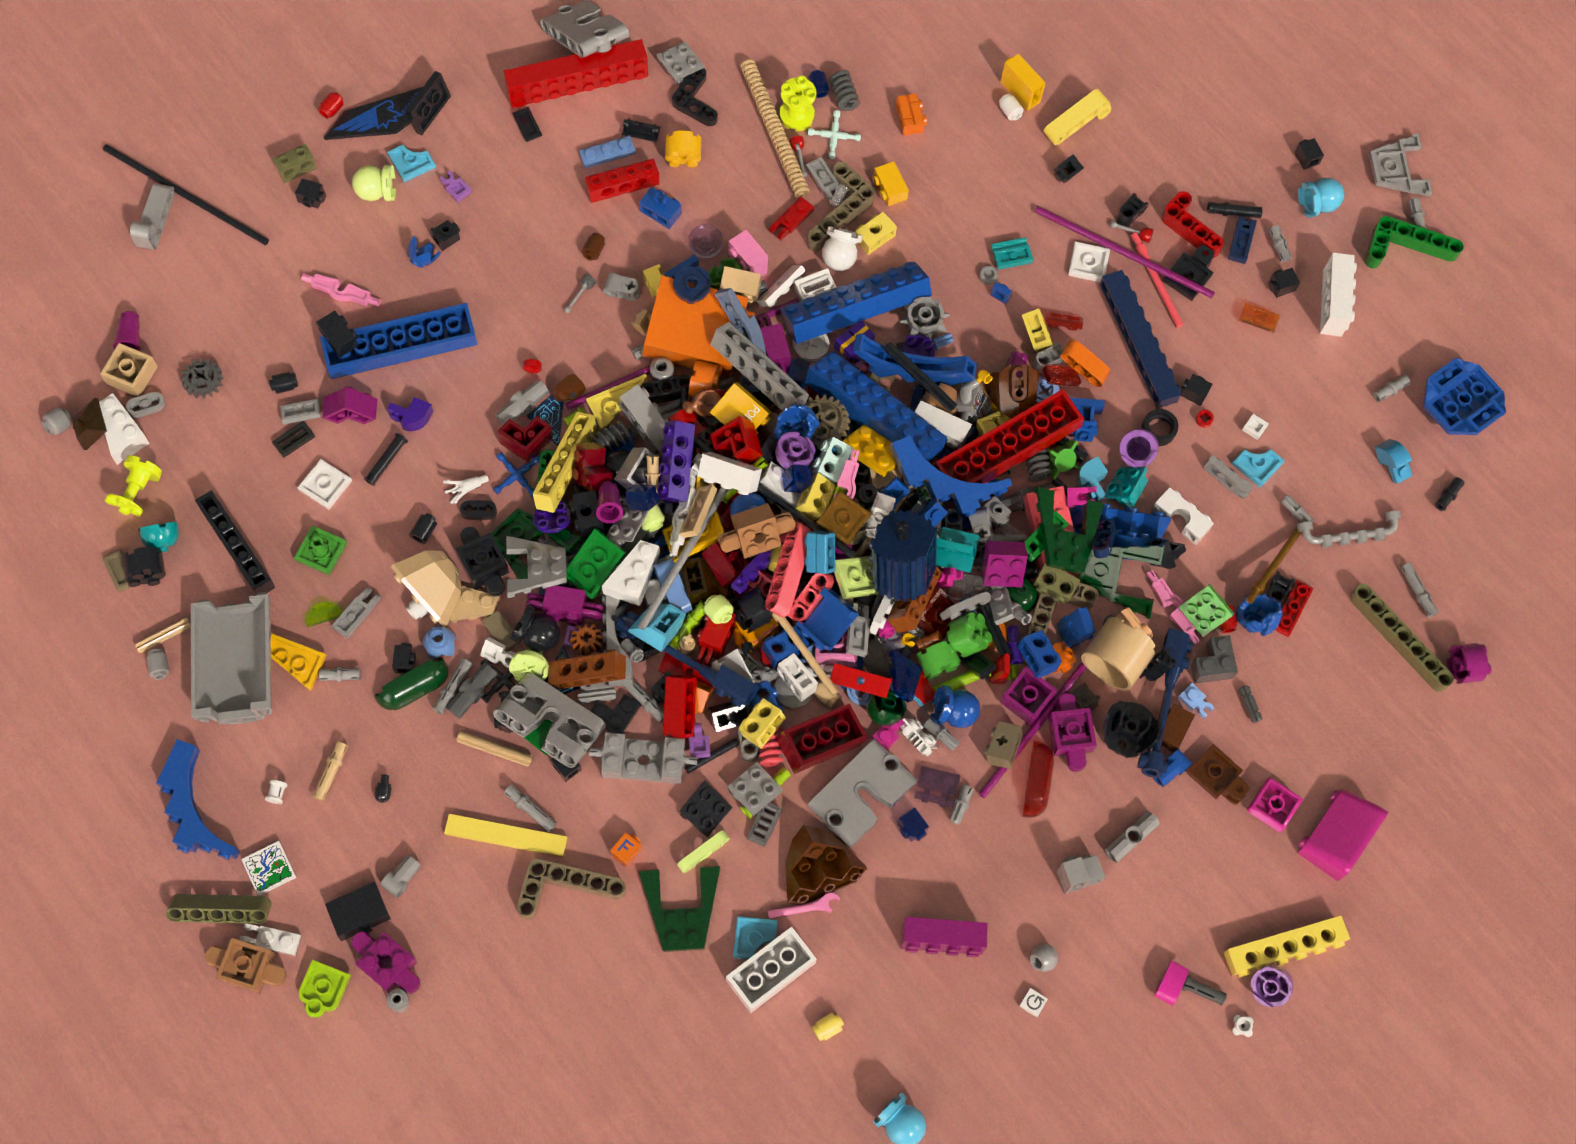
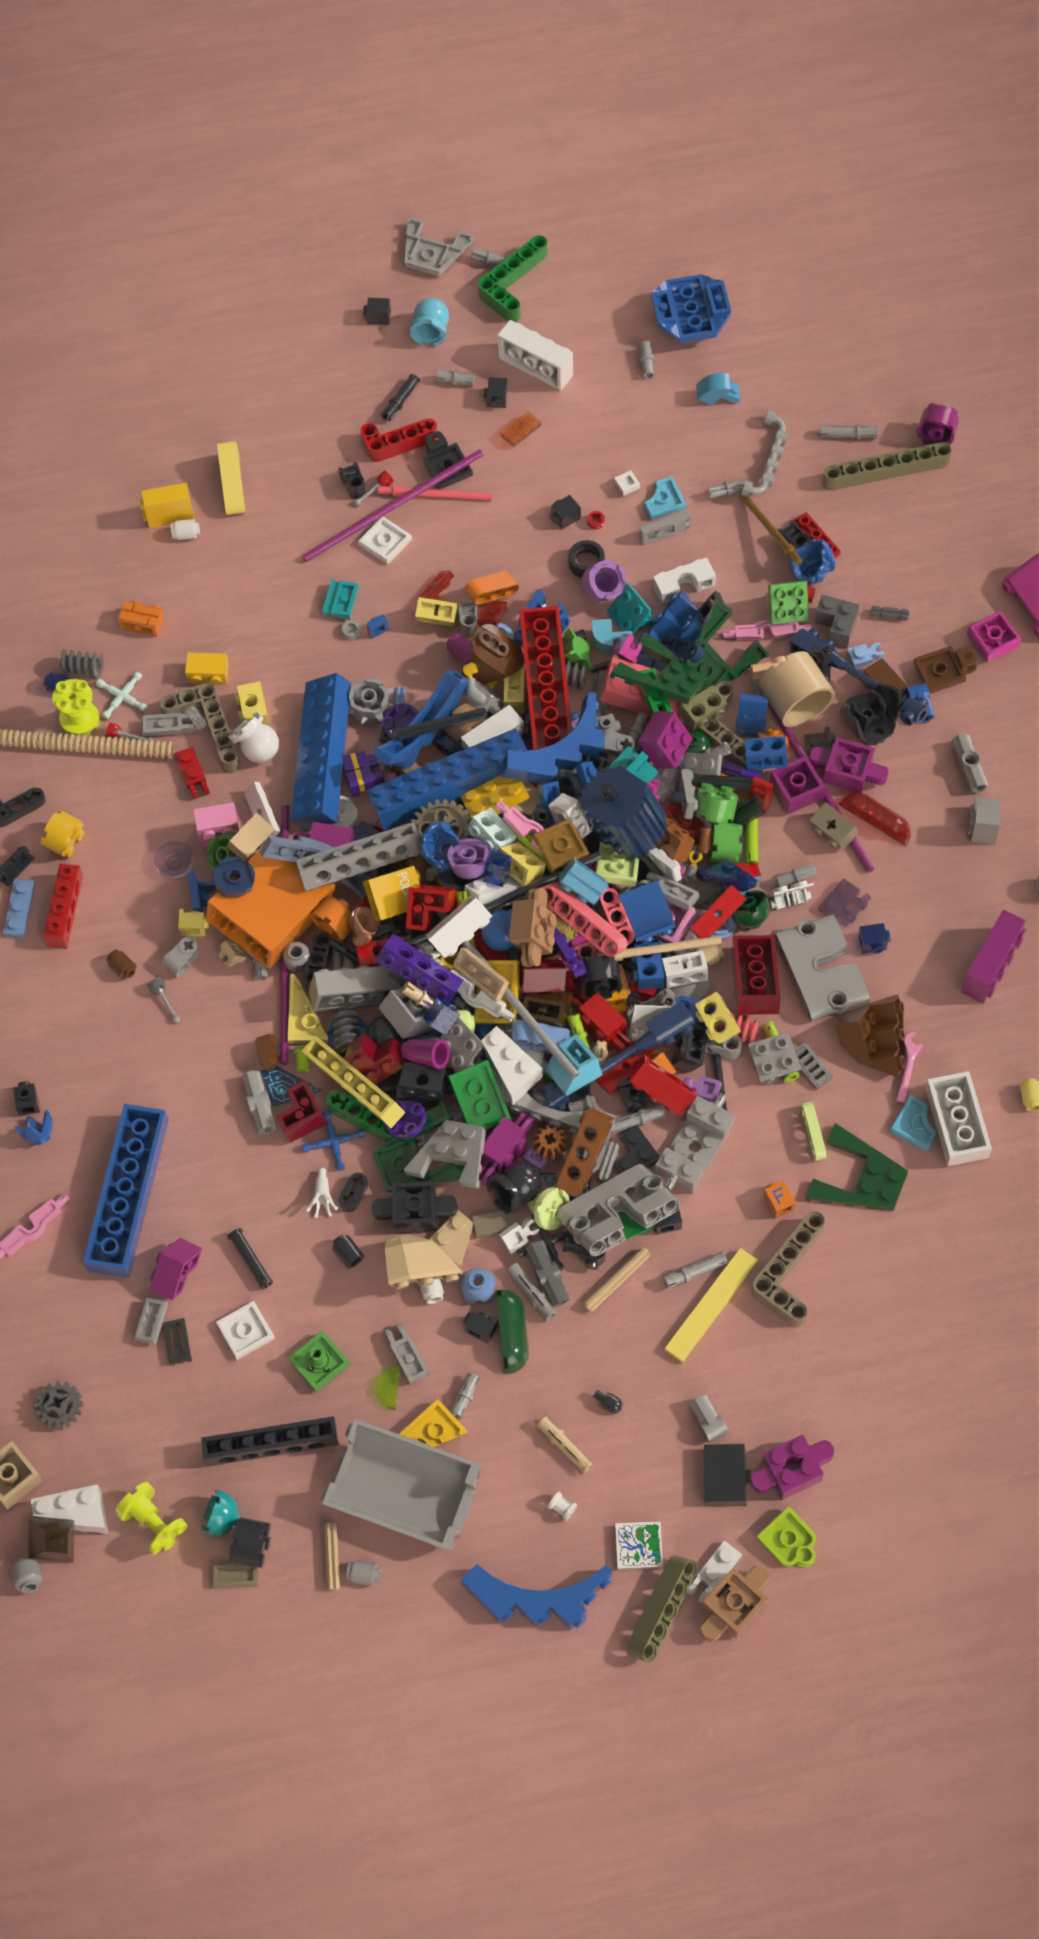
camera: 55 degrees left, 5 degrees down
(145, 404) = (57, 1476): light grey plate -> none
(283, 382) = (108, 1324): black brick -> none
(337, 333) = (93, 1239): black brick -> none
(404, 1003) = (833, 1475): light grey brick -> none
(414, 417) = (217, 1213): dark purple brick -> none
(532, 366) = (223, 1076): red tile -> none
(660, 207) = (113, 884): blue brick -> none
(705, 809) = (771, 1112): black hinge -> none
(718, 609) = (588, 1001): yellowish green head -> none
(814, 285) = (281, 783): white window -> none
(887, 735) = (774, 922): dark pink plate -> none
(956, 707) = (778, 850): blue tile -> none
(961, 804) = (871, 889): light grey axle -> none
(1073, 167) = (280, 511): black brick -> none
(1140, 339) = (489, 533): dark blue brick -> none
(1242, 240) = (434, 405): dark blue plate -> none
(1449, 494) = (771, 365): black pin -> none

